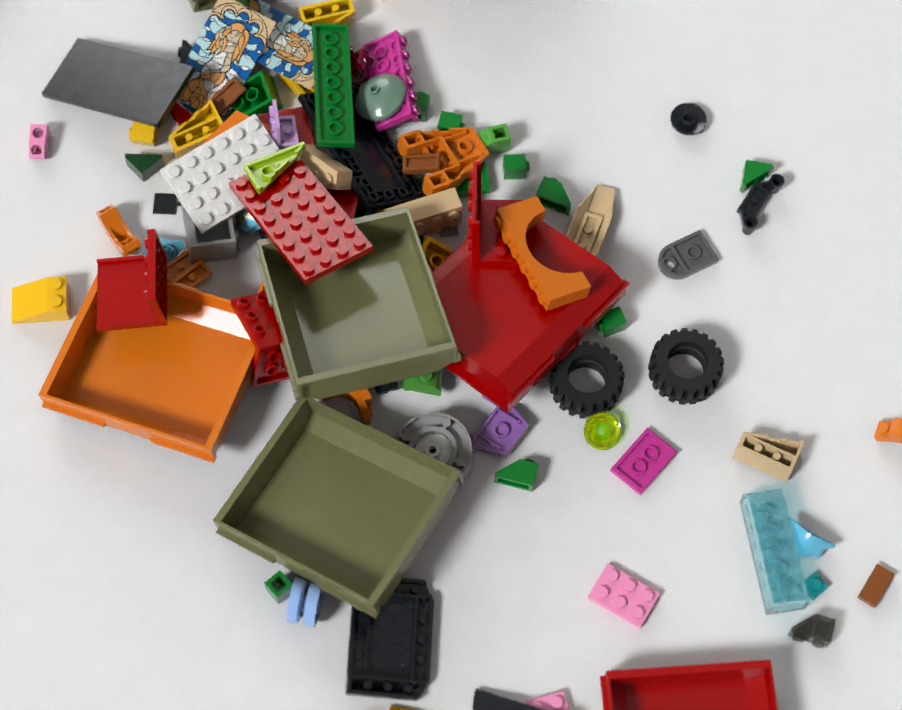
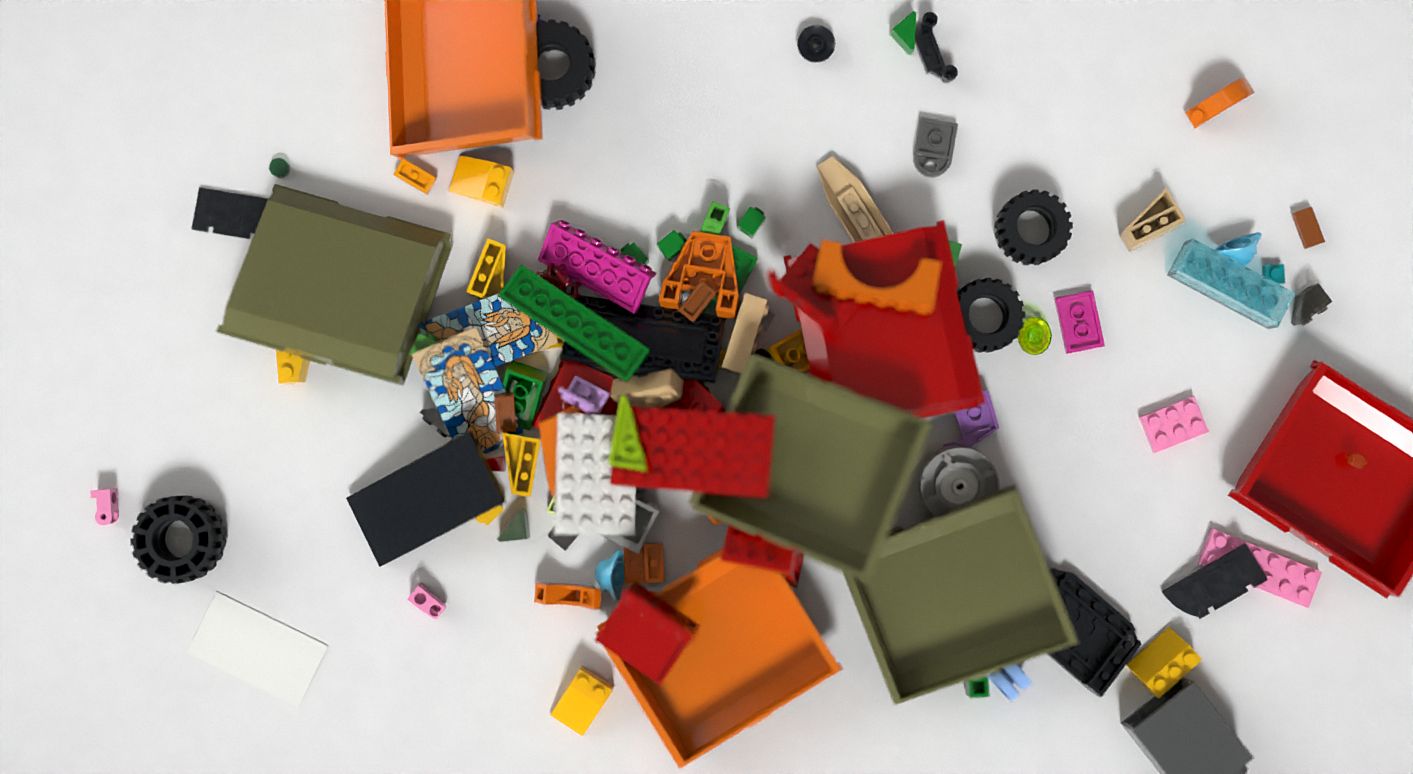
camera: 50 degrees left, 20 degrees up
(380, 97) = (619, 287): sand green dish -> none
(519, 474) = (1021, 428): green slope -> none
(553, 195) = (801, 211): green slope -> none

